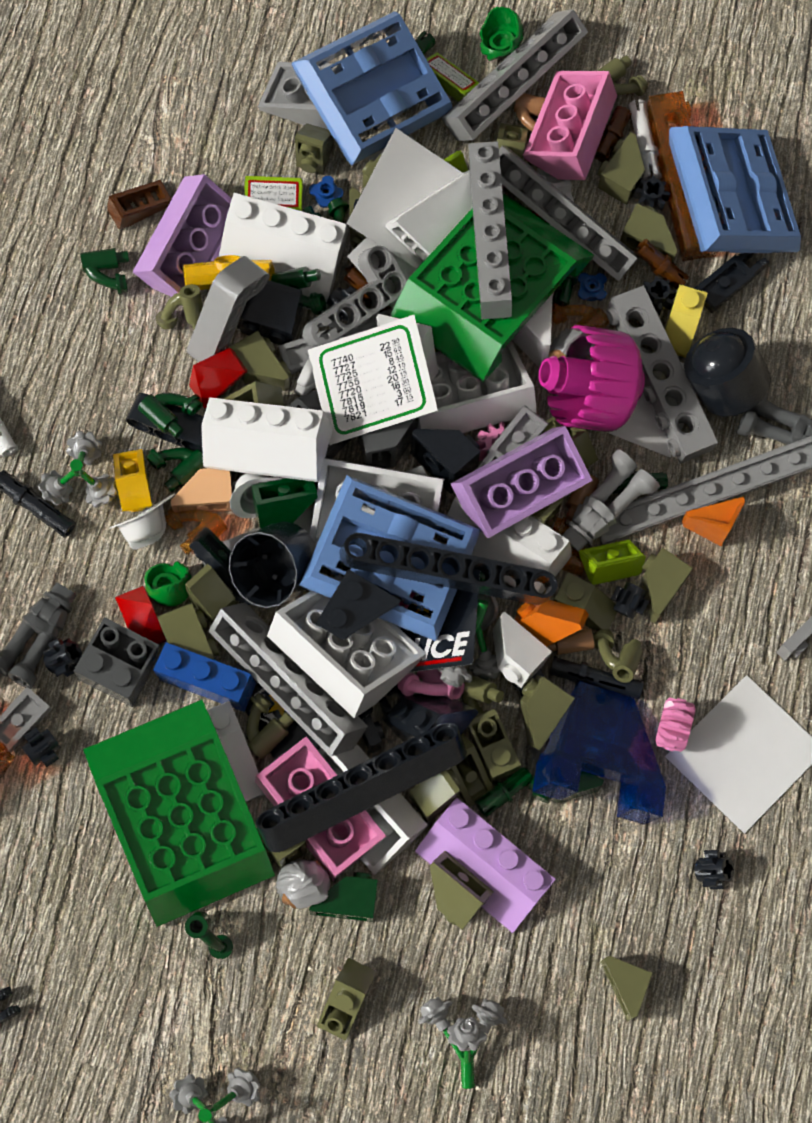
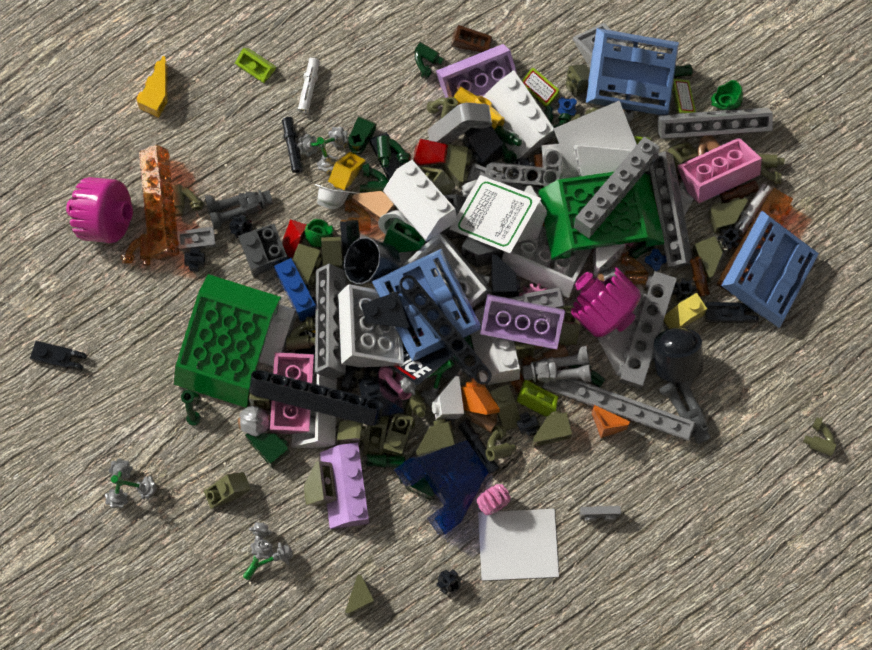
camera: 45 degrees right, 0 degrees up
(110, 420) = (360, 135): none -> dark green piece

